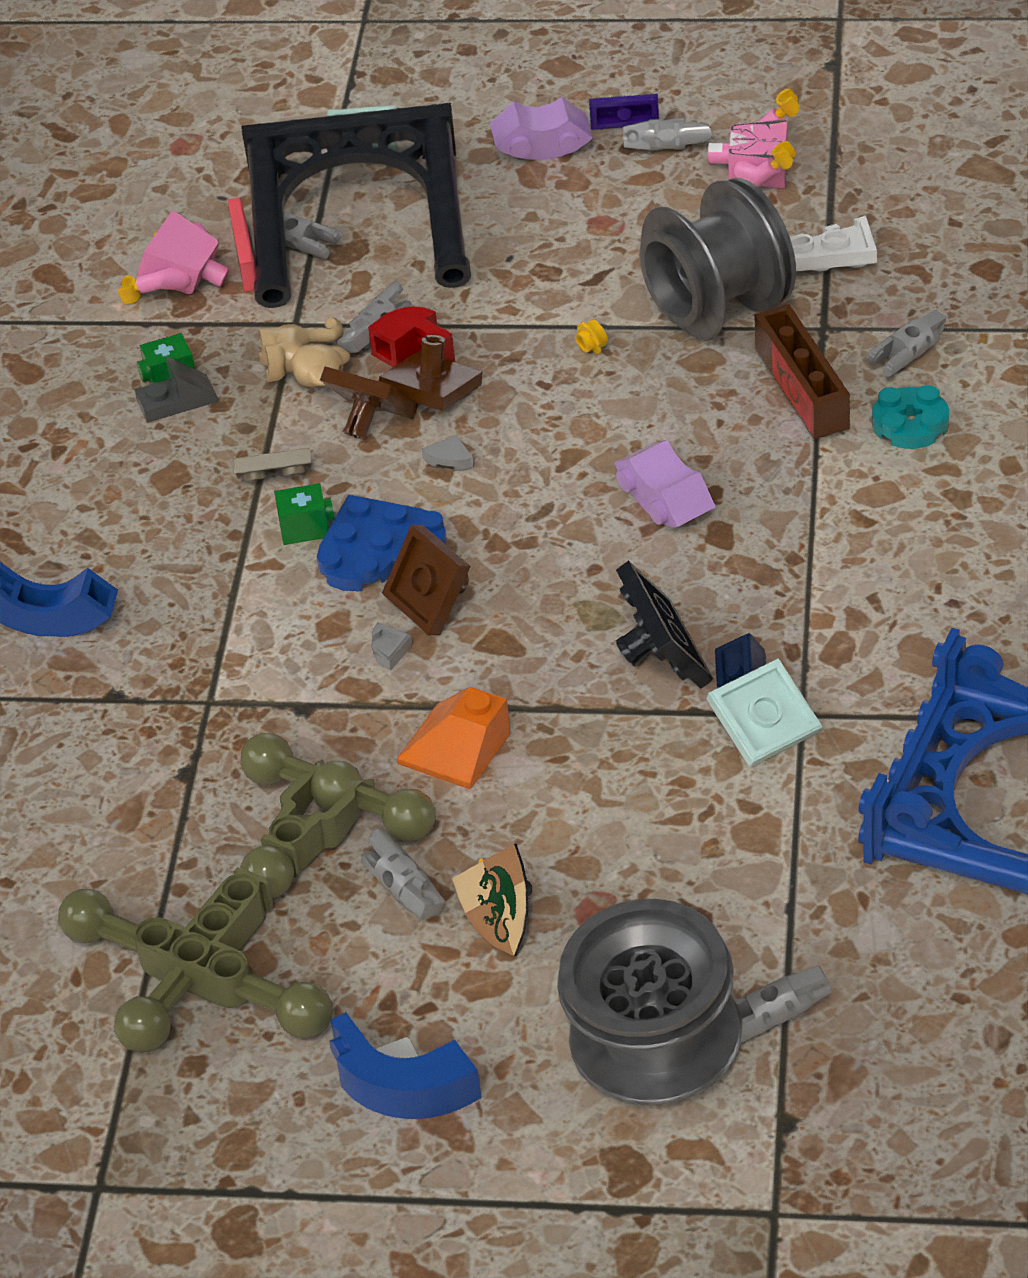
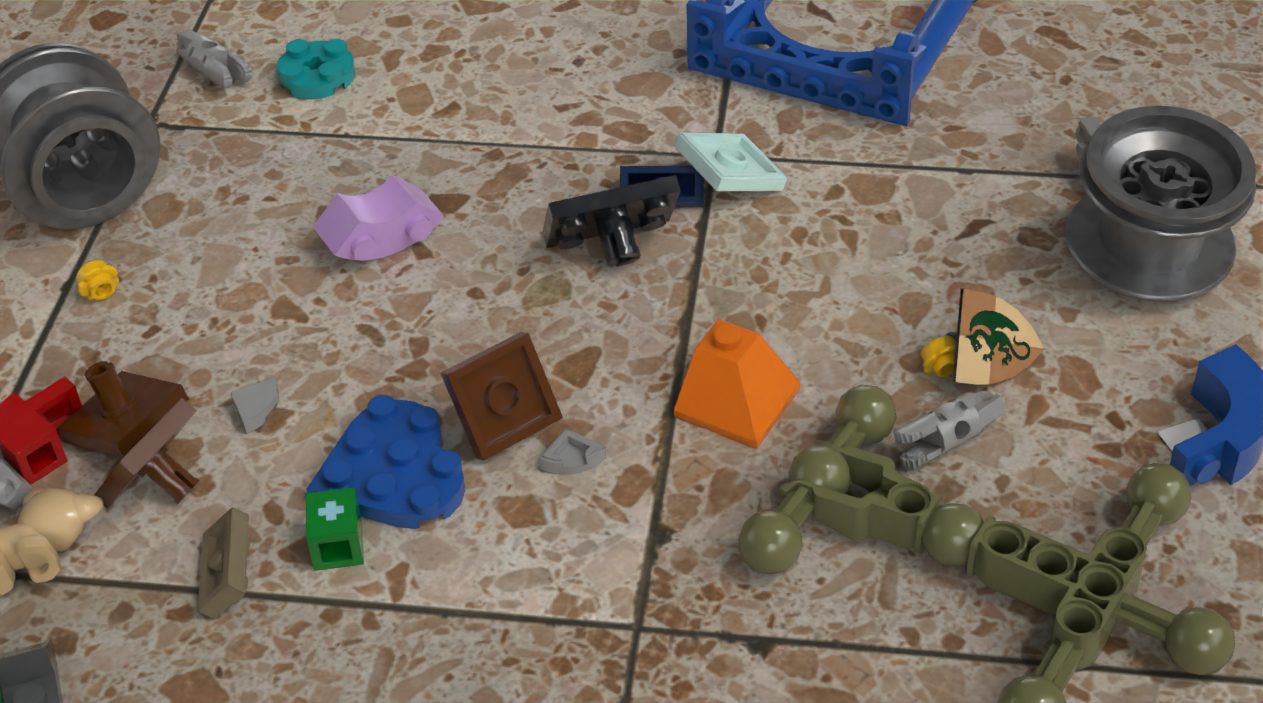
camera: 90 degrees left, 0 degrees up
(802, 371) = (239, 117): reddish brown brick -> none

